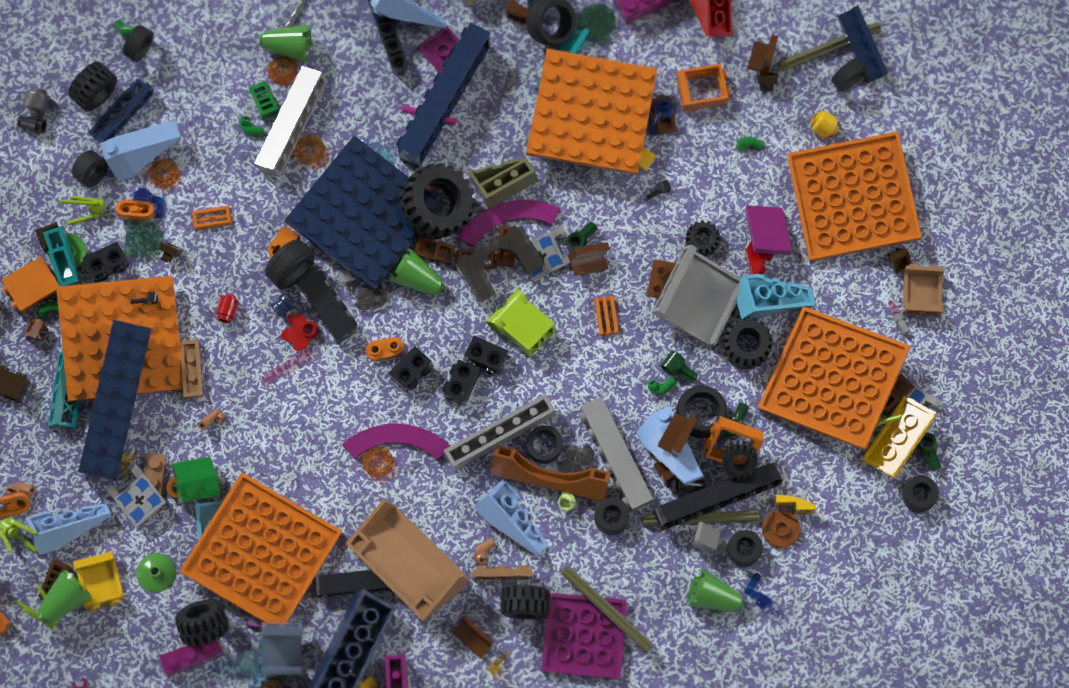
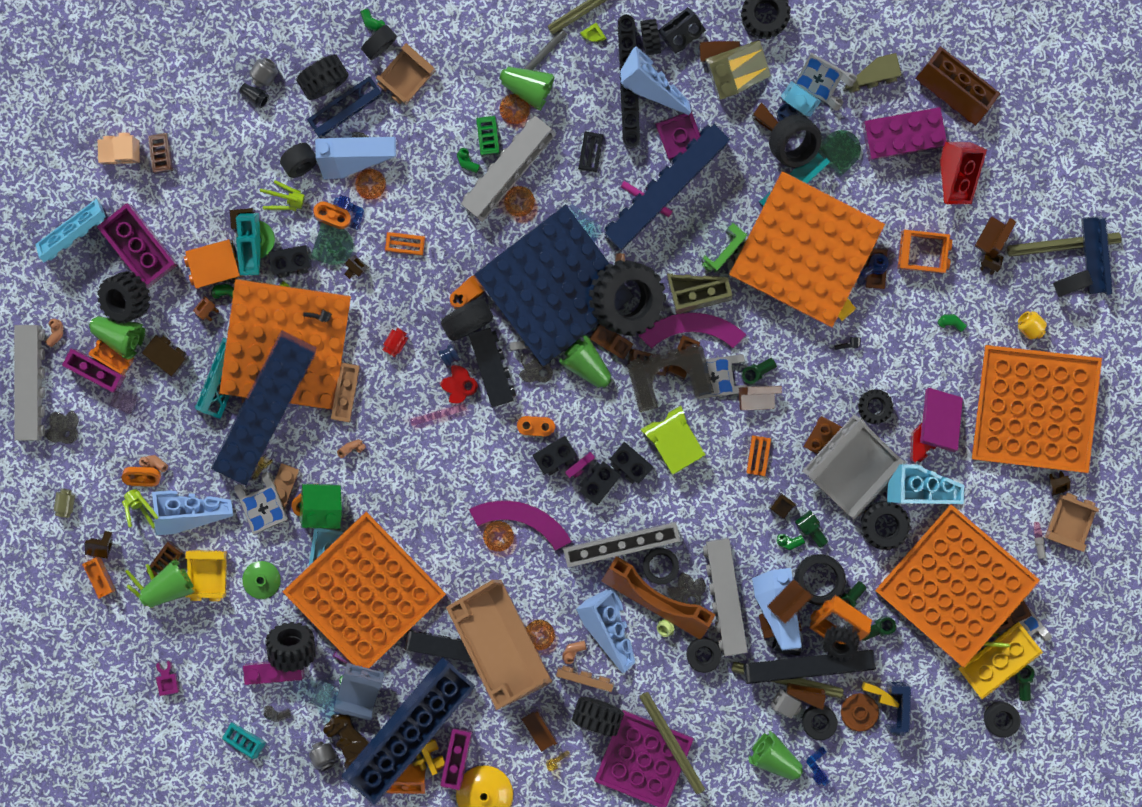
camera: 15 degrees right, 15 degrees up
(171, 66) = (405, 75): none -> medium nougat panel
(366, 102) = (588, 168): none -> black tile
(435, 375) = (576, 469): none -> magenta plate
(452, 538) = (548, 631): none -> clear orange gear
(523, 119) = (738, 235): none -> bright green panel
(643, 353) = (782, 505): none -> dark brown panel
(731, 522) = (810, 695): none -> reddish brown slope
(772, 442) = (876, 629): none -> dark green axle
(816, 492) = (903, 712): none -> dark blue panel

